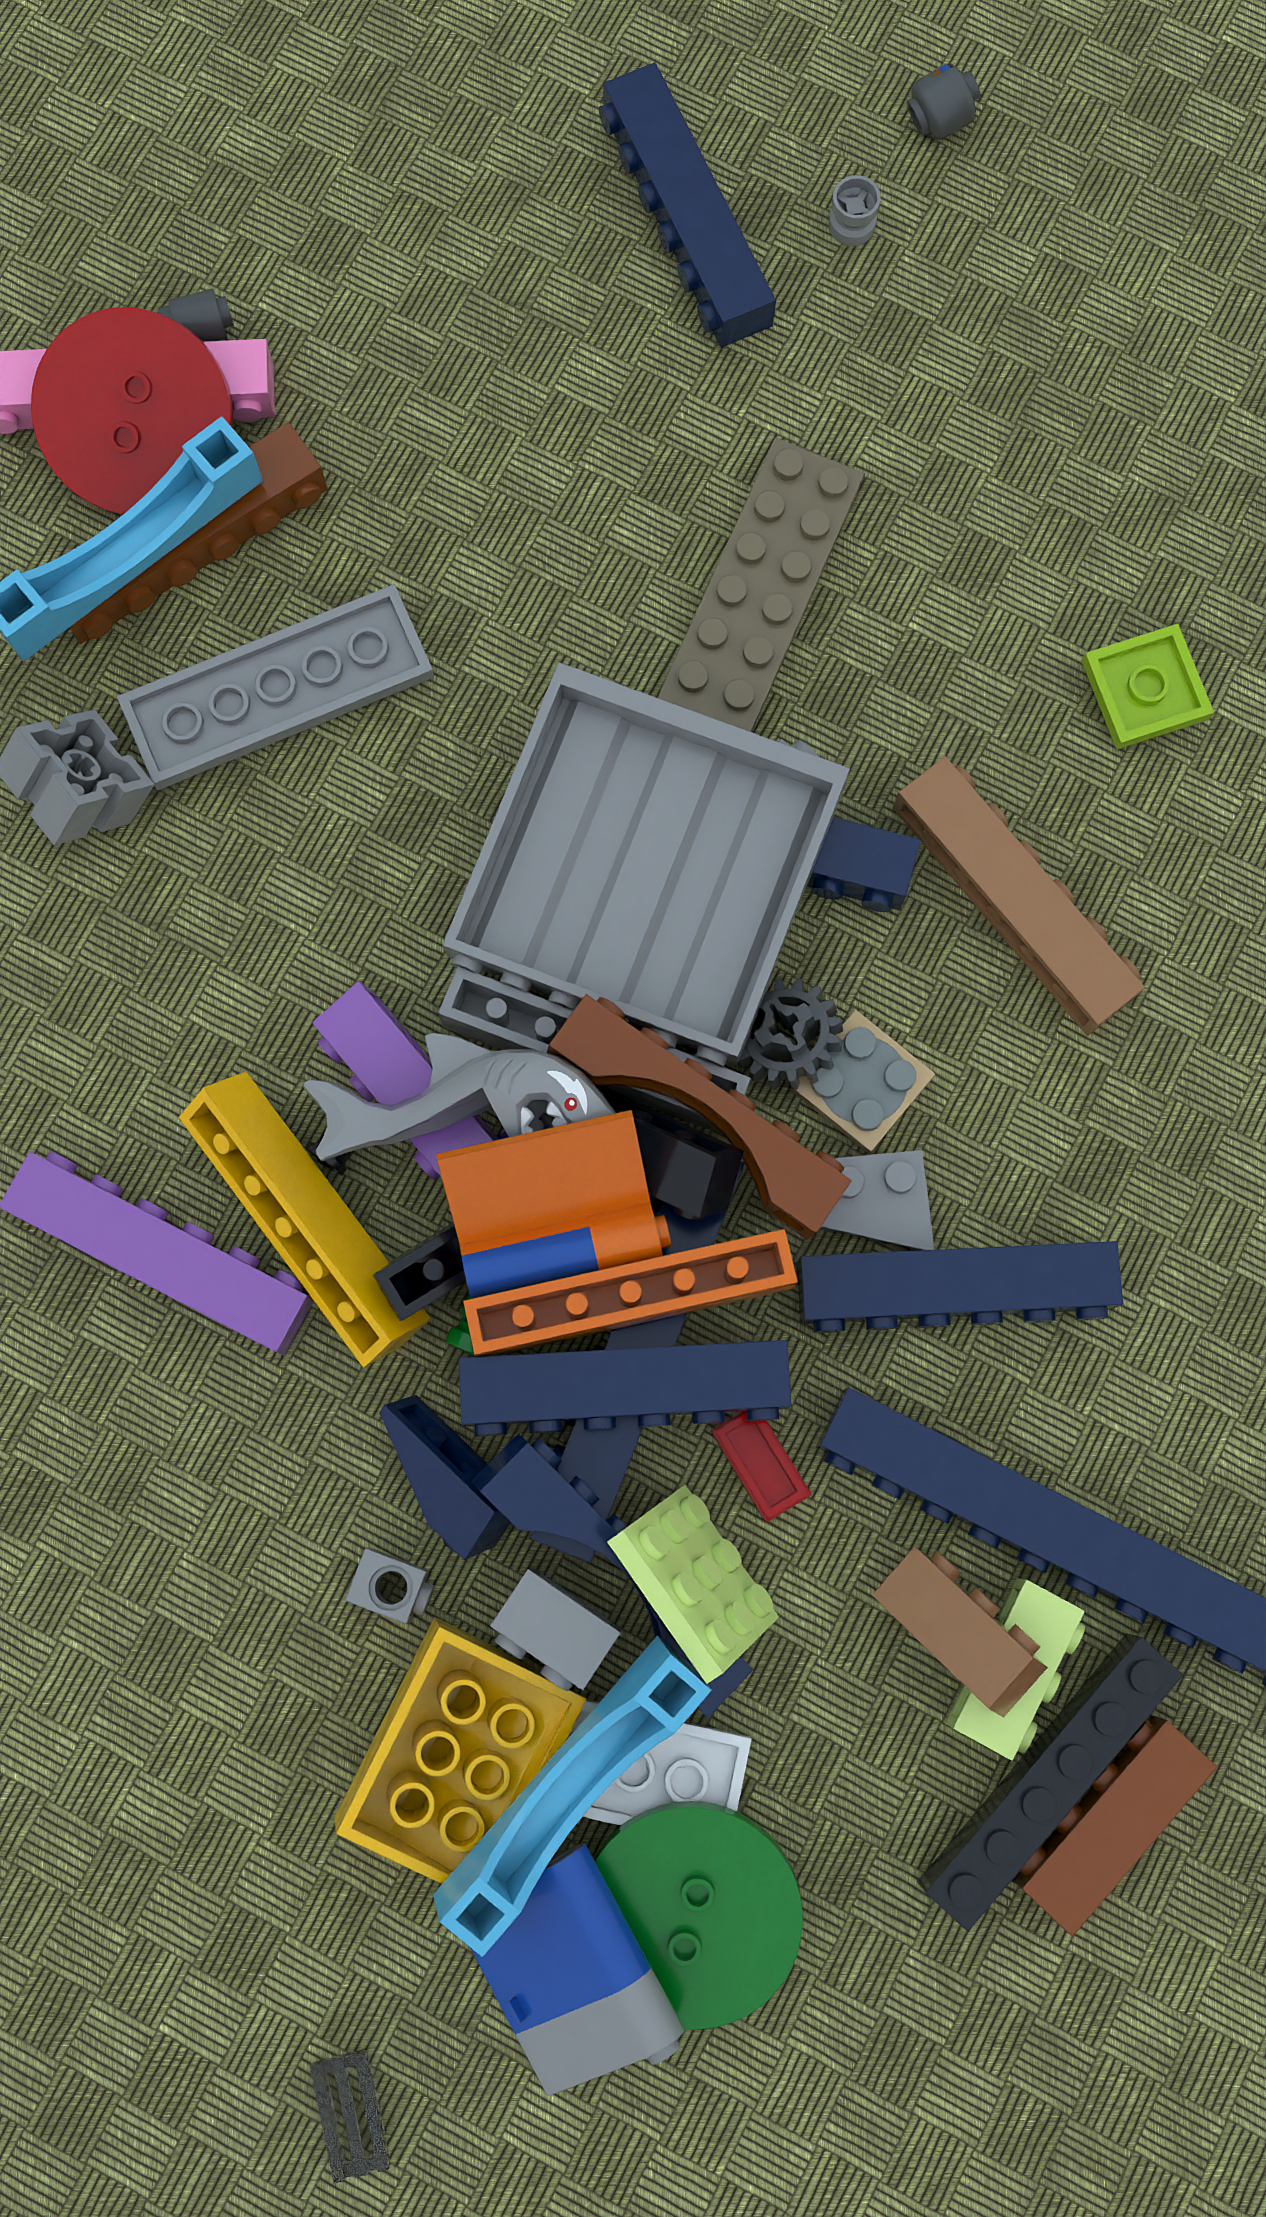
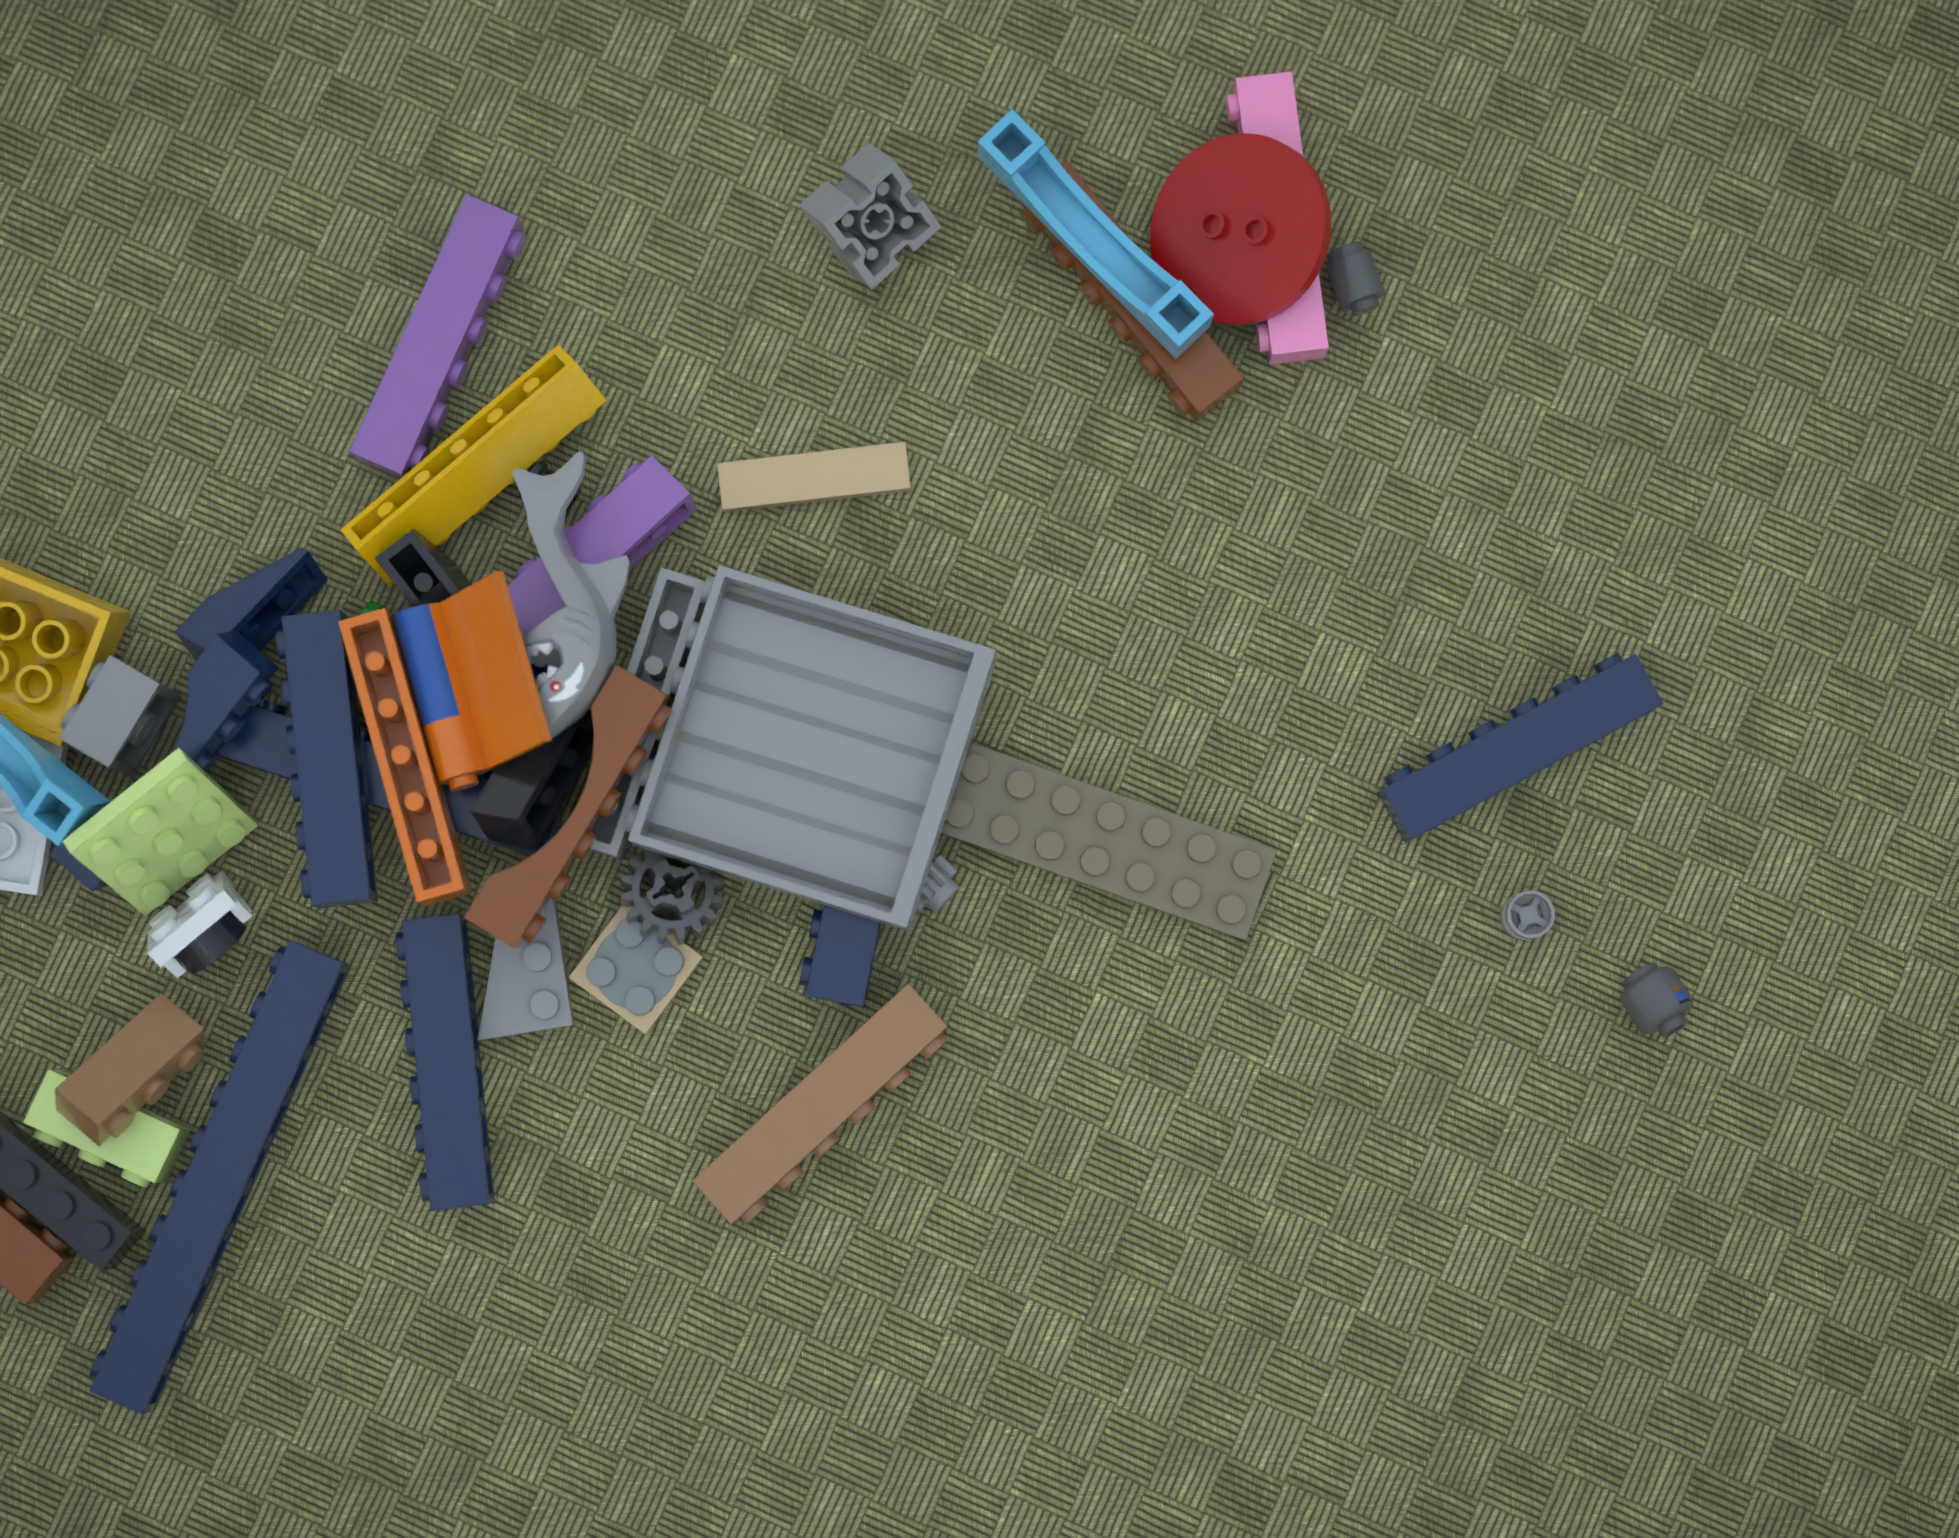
camera: 90 degrees right, 5 degrees up
(275, 687) = (984, 392): light grey plate -> none
(349, 867) = (813, 477): none -> tan tile
(366, 1582) = (145, 552): light grey brick -> none
(761, 1465) = (275, 895): red tile -> none
(798, 1549) = (199, 927): none -> white piece
(1147, 686) = (1043, 1225): lime plate -> none

